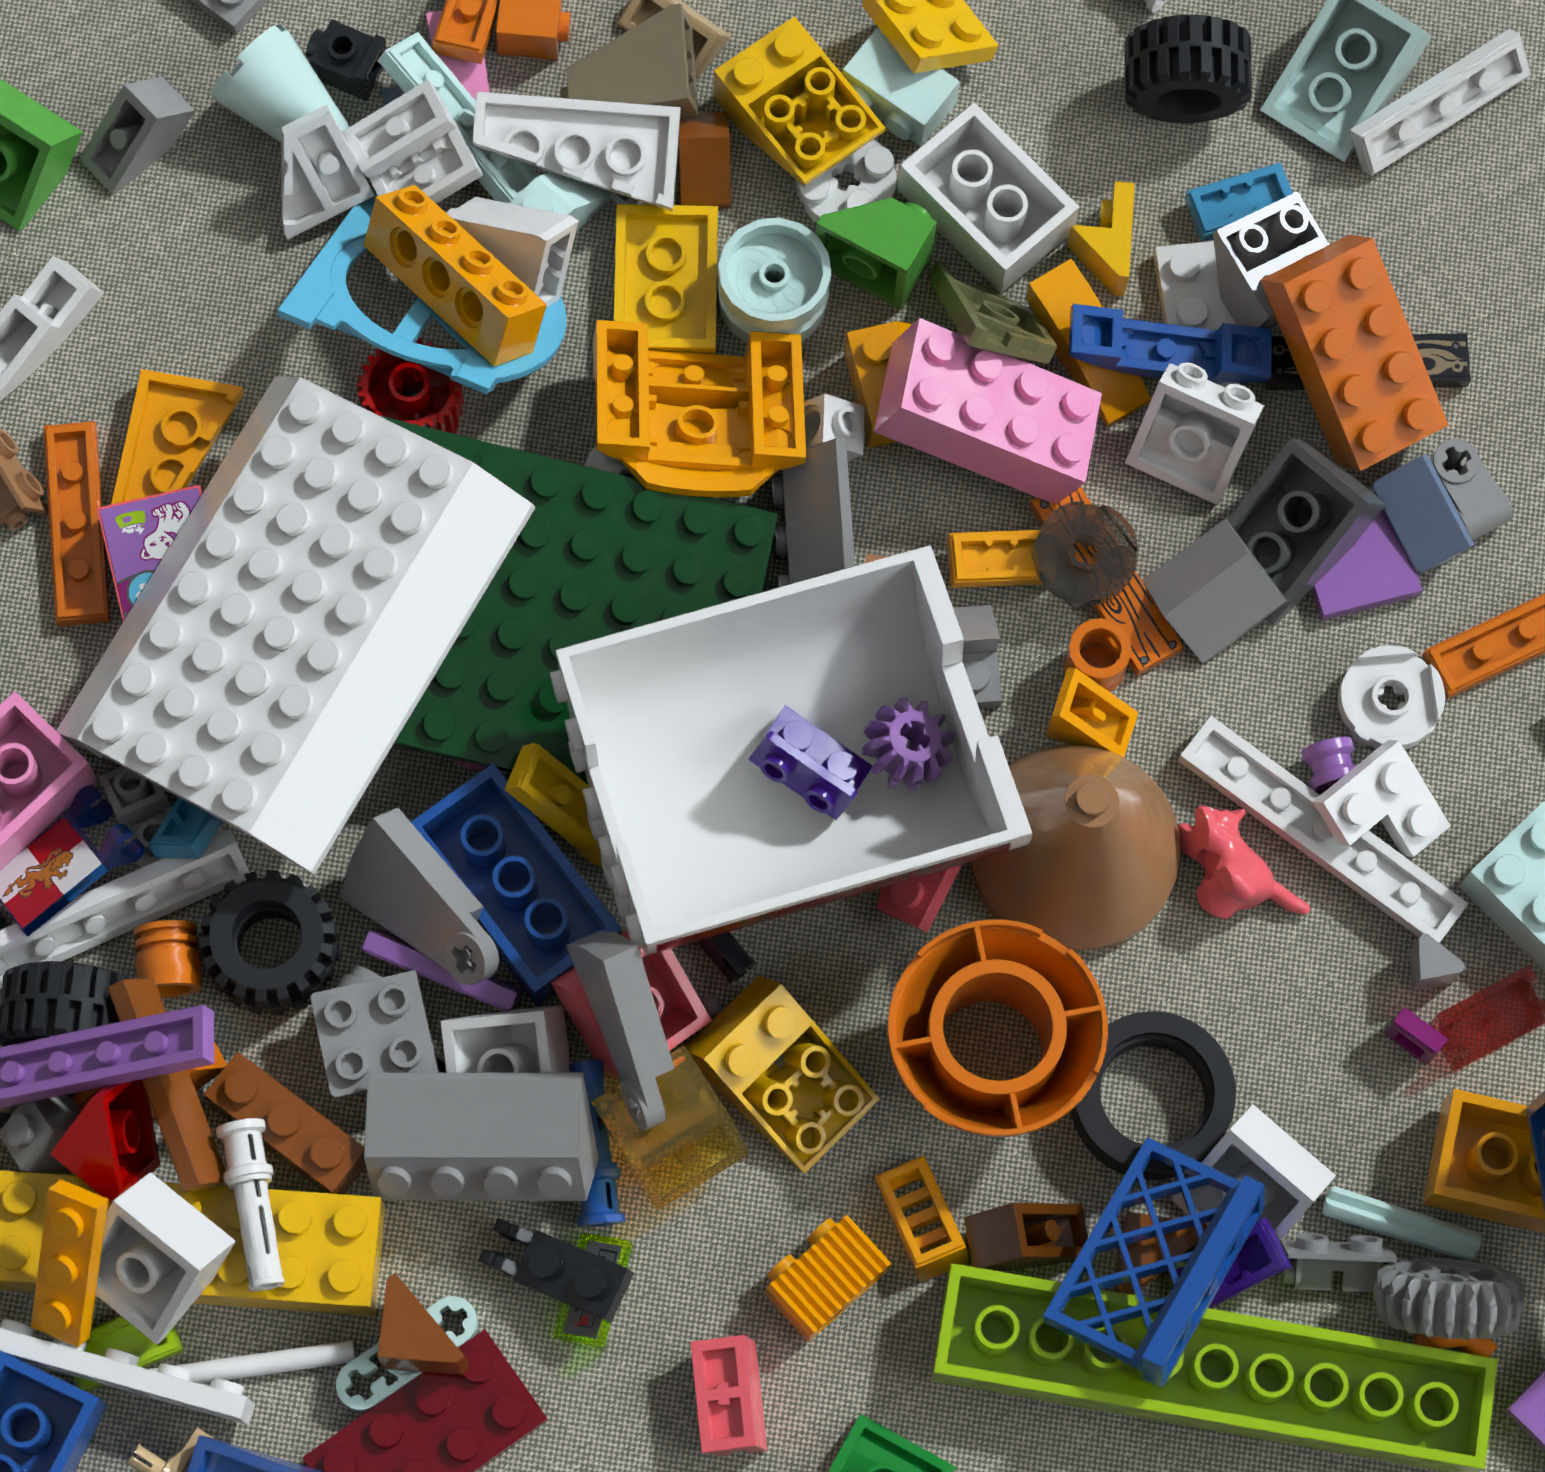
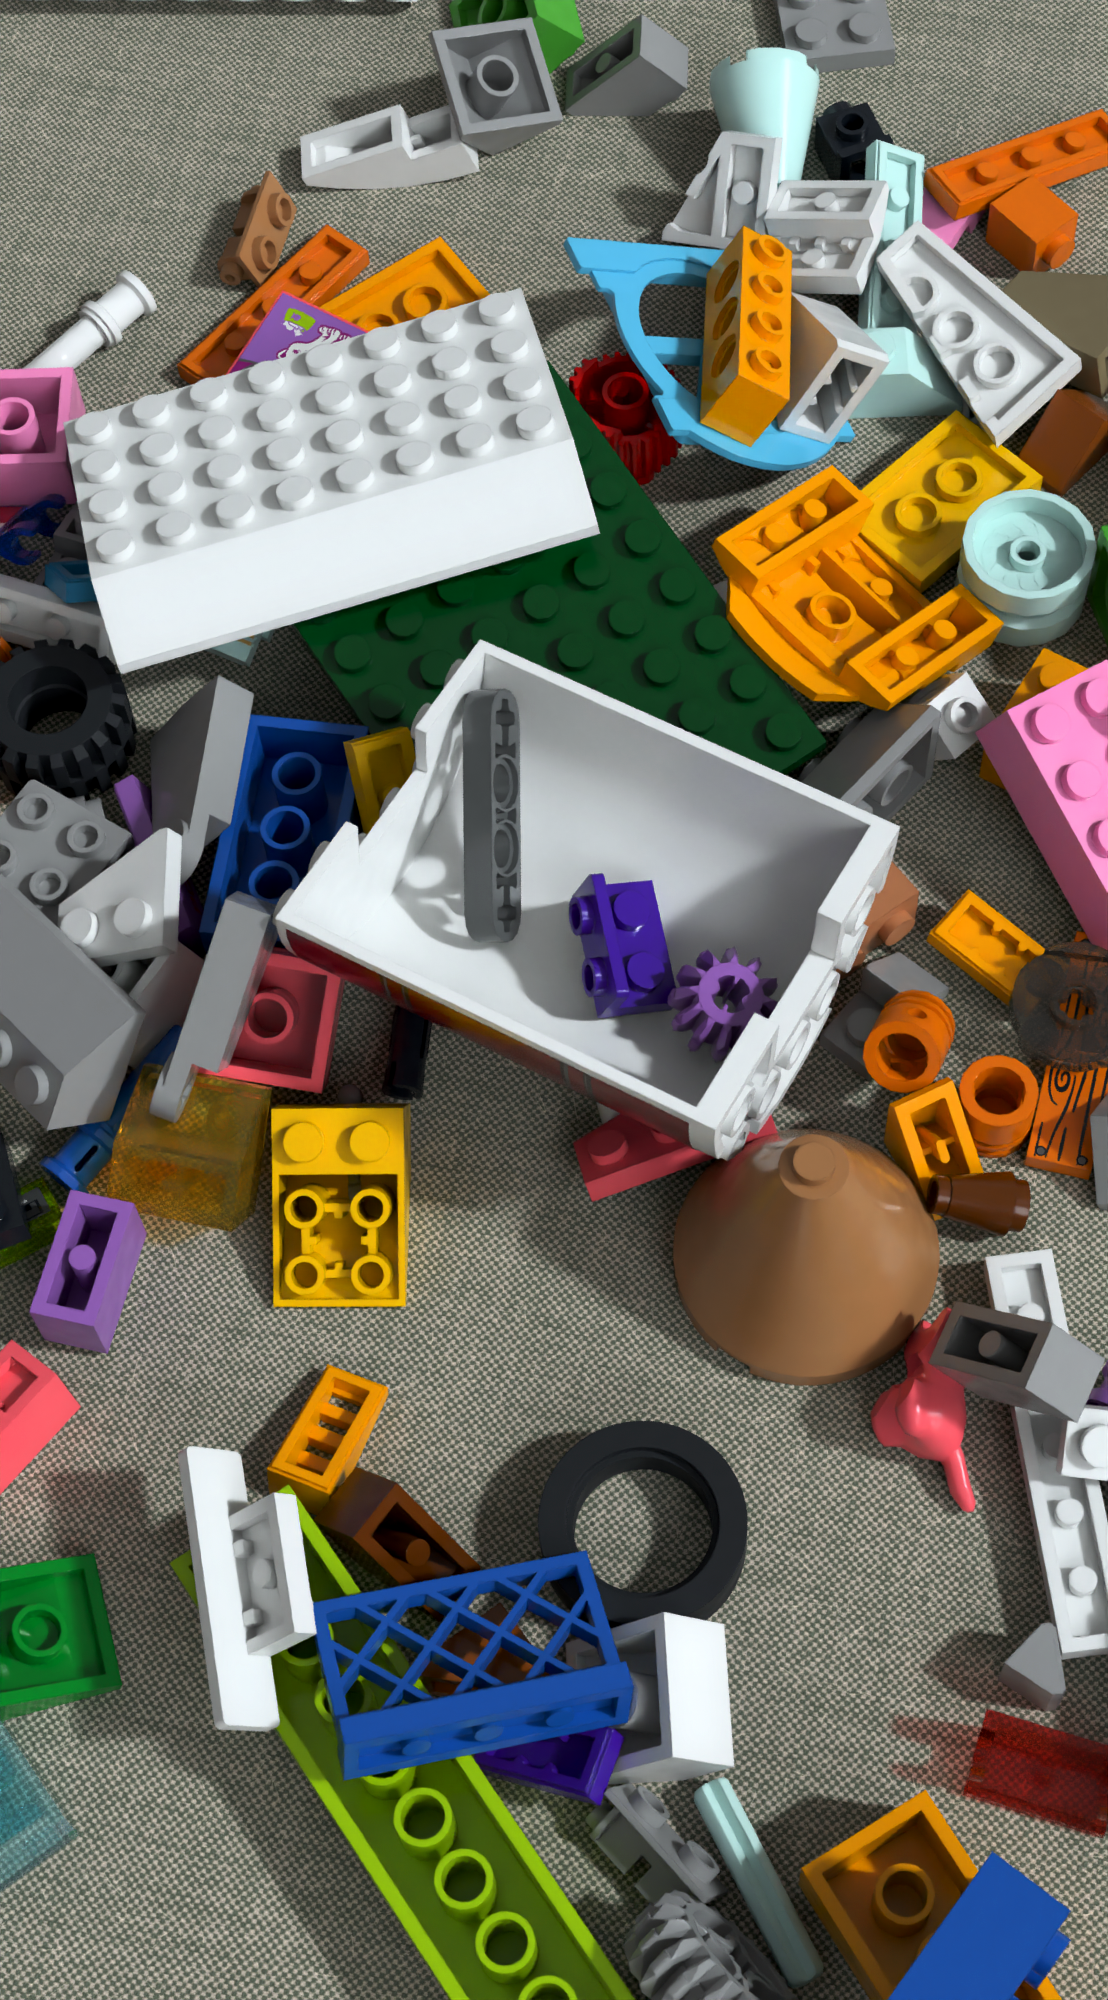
camera: 55 degrees right, 10 degrees down
(67, 218) = (496, 83): none -> light grey slope
(485, 1018) = (130, 906): none -> white wing
(658, 753) = (491, 815): none -> dark grey beam
(688, 1258) = (88, 1271): none -> medium lavender brick
(826, 1276) = (183, 1403): light orange brick -> none
(999, 1334) = (247, 1585): none -> white bracket
(1012, 967) = (521, 1244): orange cone -> none
(1020, 663) = (909, 1041): none -> orange piece
(1146, 721) = (981, 1200): none -> reddish brown cone
(1275, 804) = (1017, 1361): none -> light grey brick
(1415, 1036) = (951, 1717): magenta tile -> none

